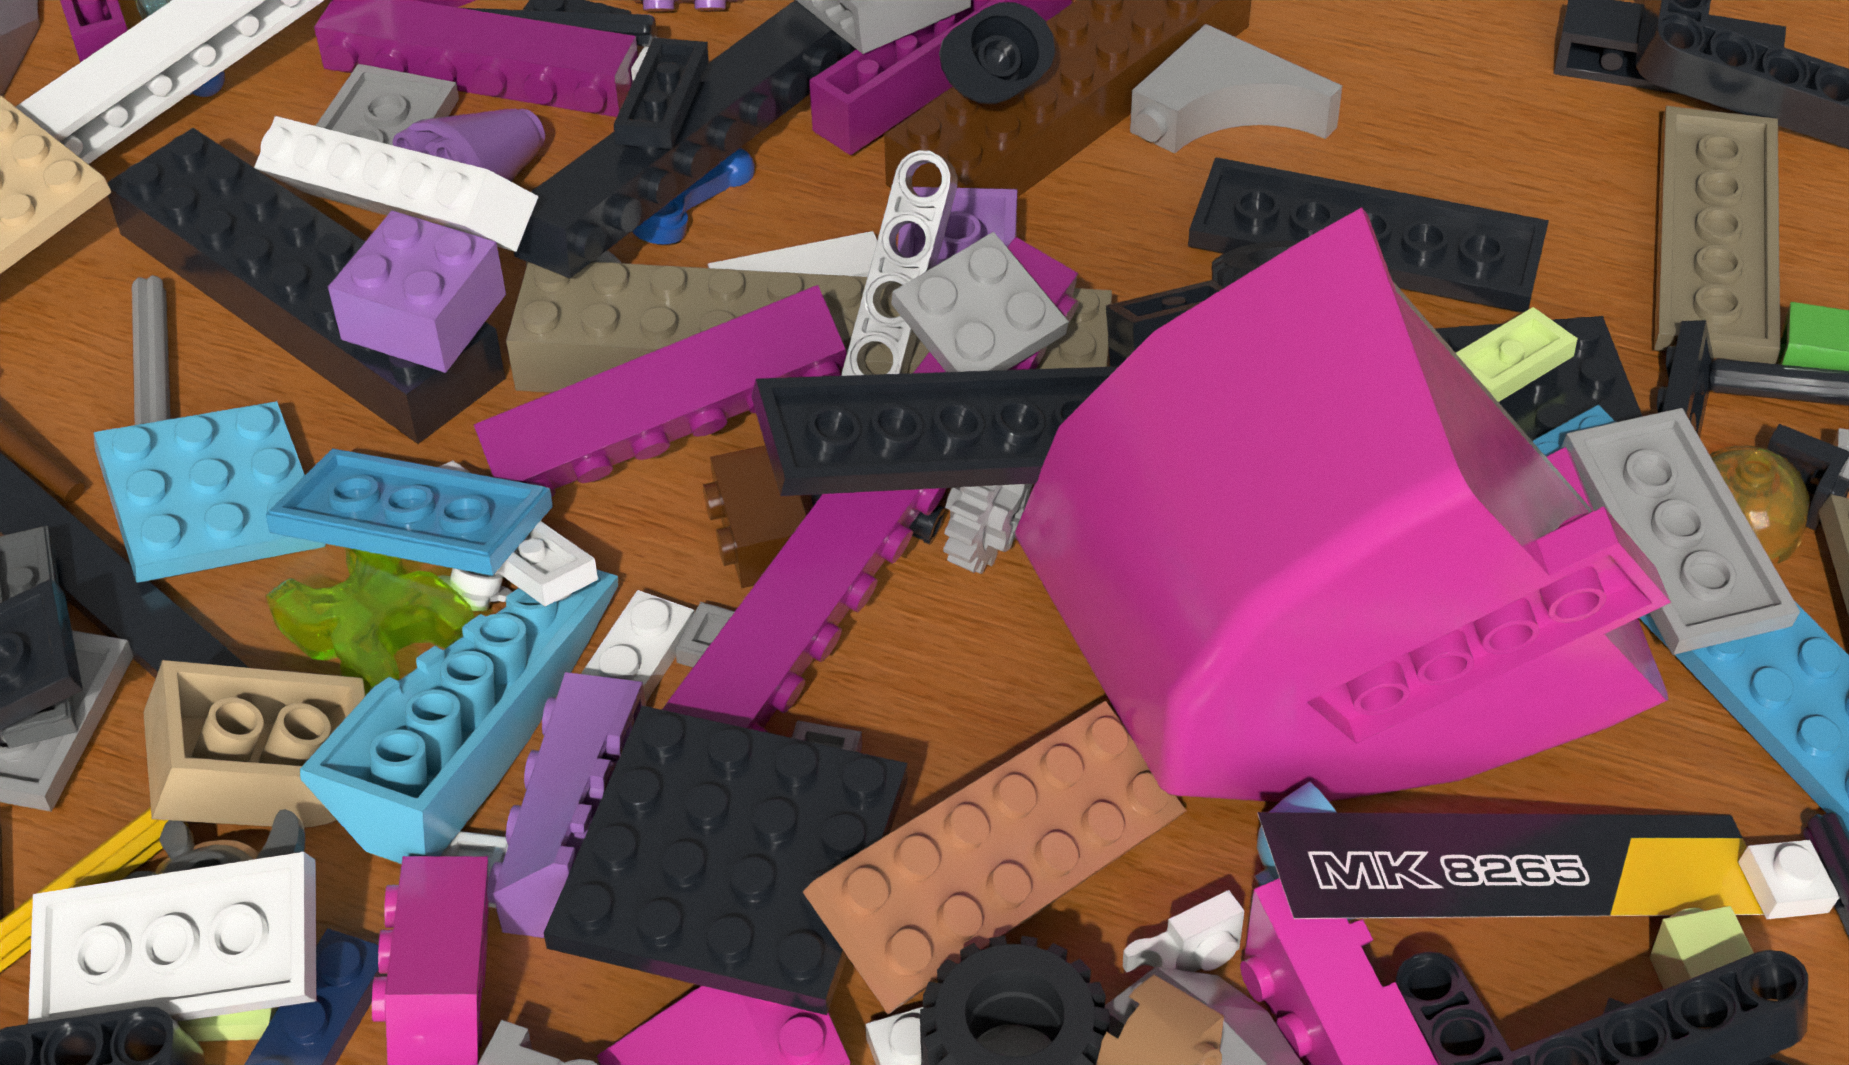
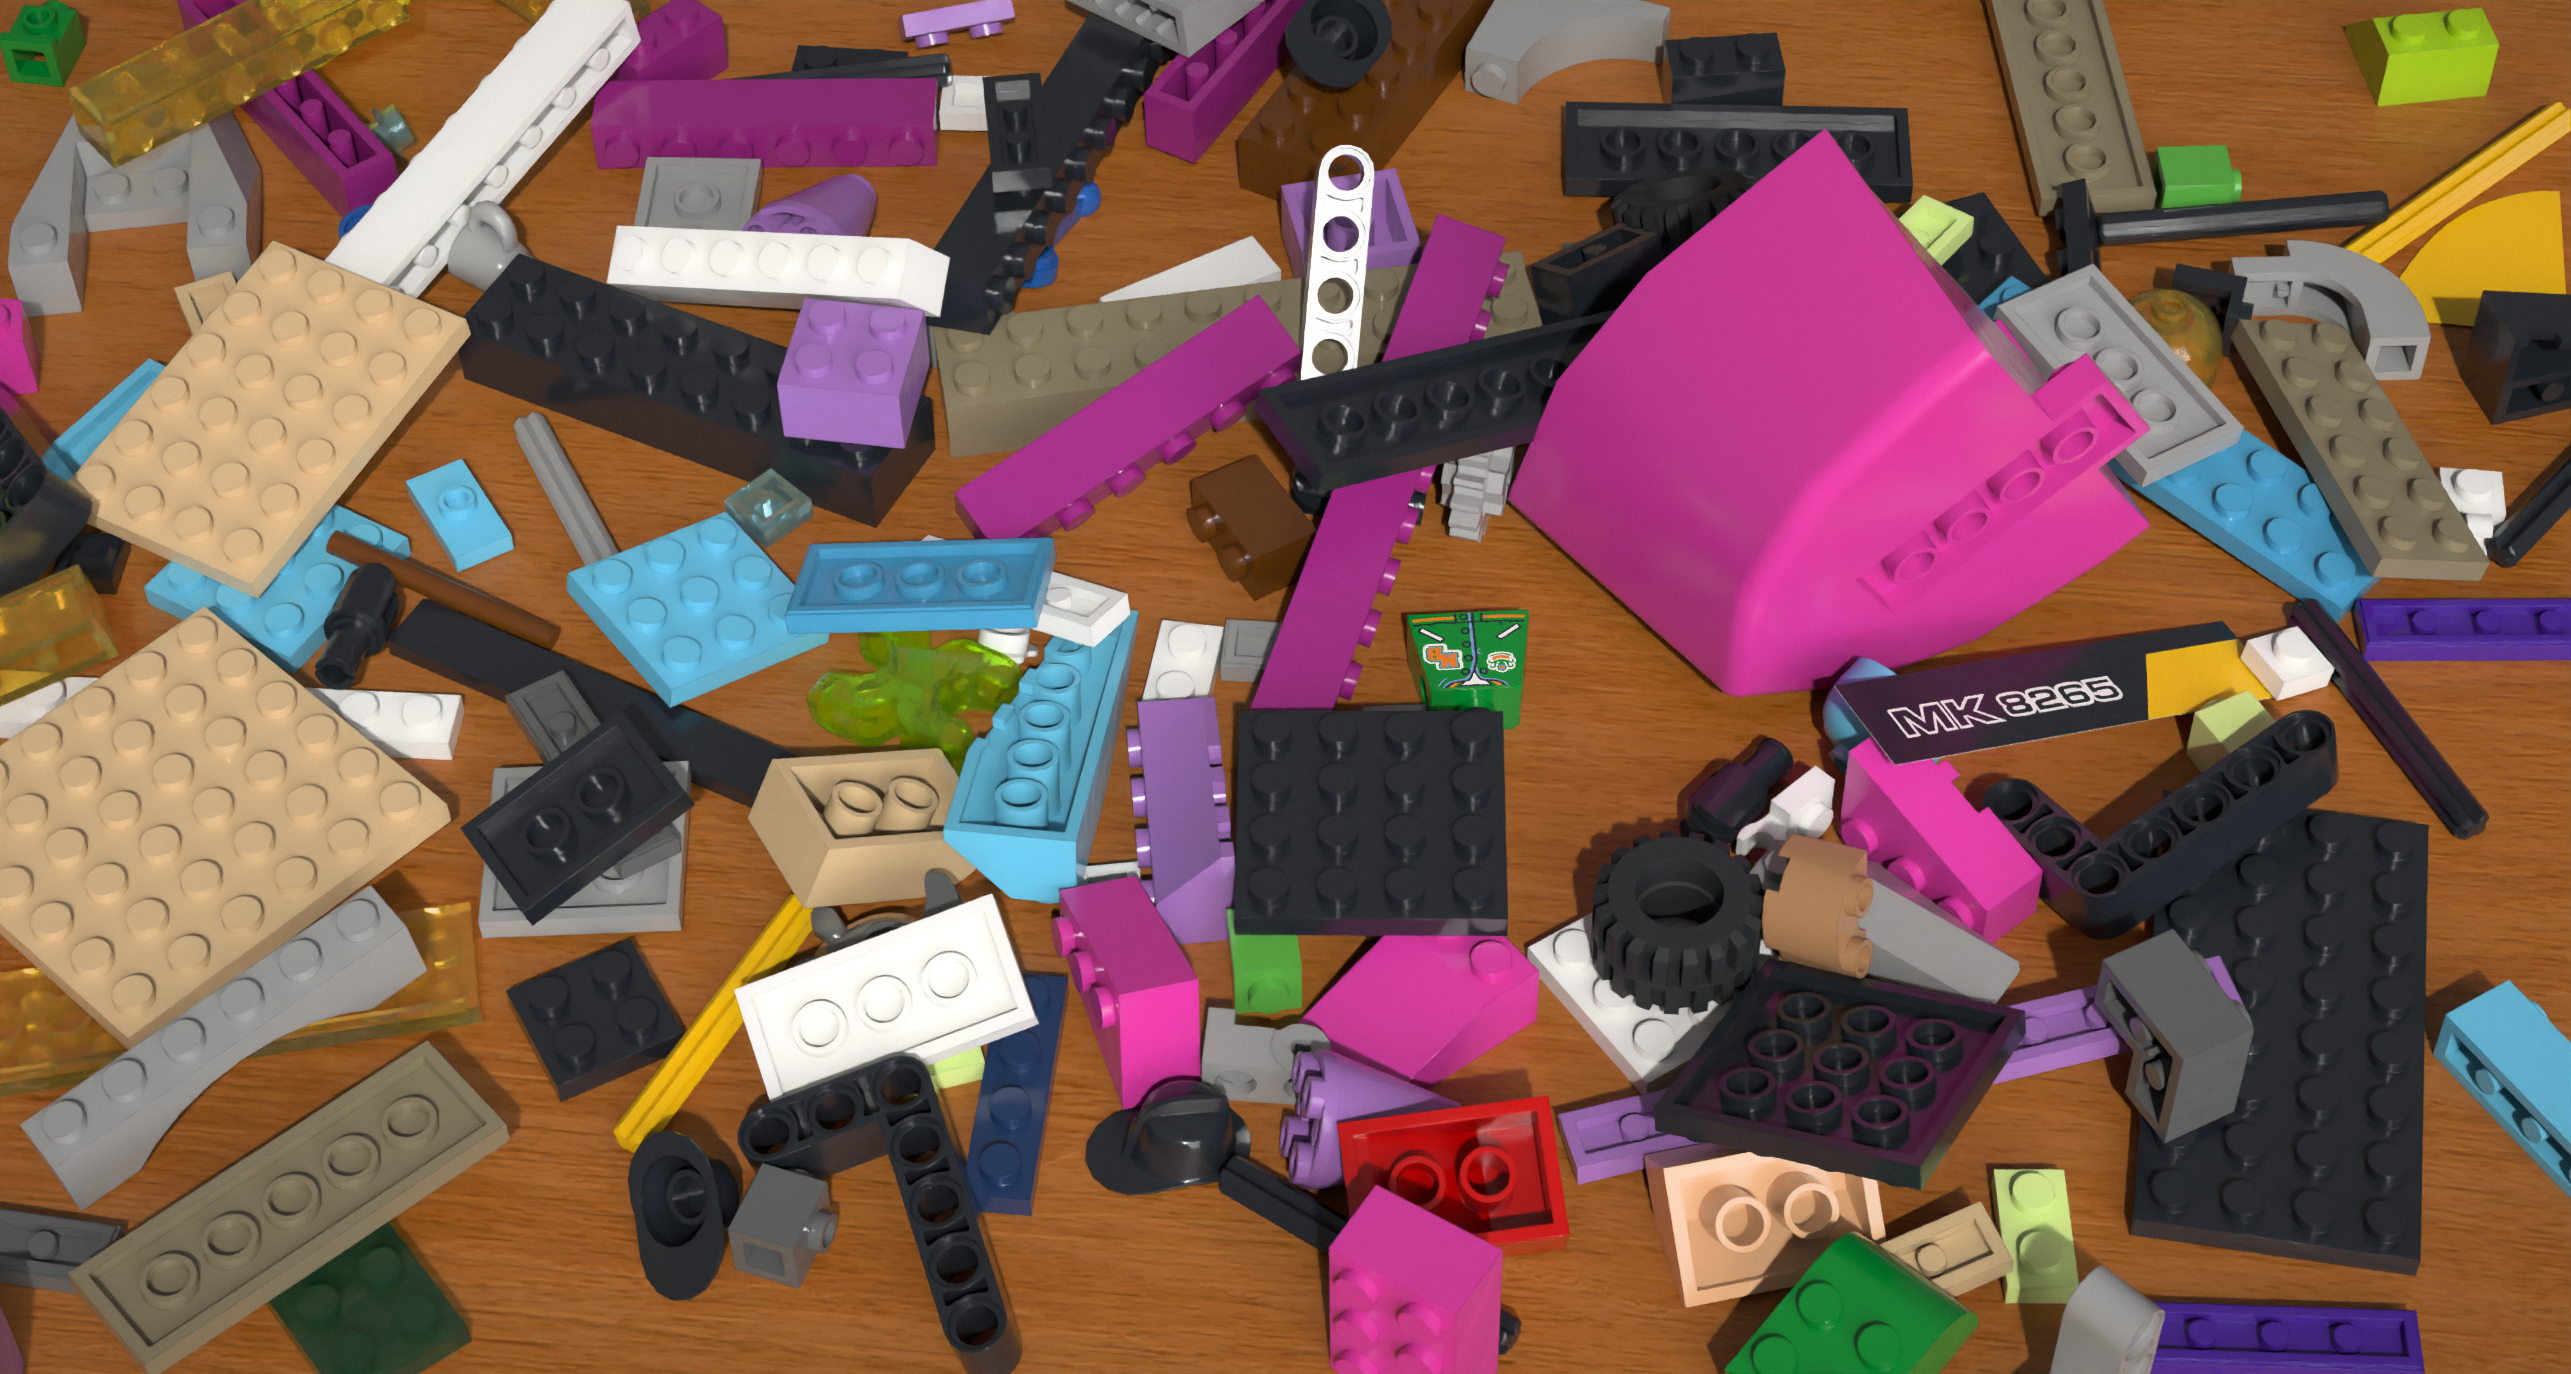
camera: 15 degrees left, 0 degrees up
(49, 359) = (459, 515): none -> medium azure plate
(177, 113) = (484, 246): none -> light grey piece
(320, 405) = (769, 507): none -> clear light blue plate
(584, 994) = (1264, 971): none -> bright green brick
(920, 704) = (1470, 661): none -> green torso
(979, 310) = (1428, 289): light grey plate -> none
(992, 855) = (1603, 774): nougat plate -> none
(1138, 903) = (1735, 794): none -> black arm
(1377, 153) = (1724, 70): none -> black brick

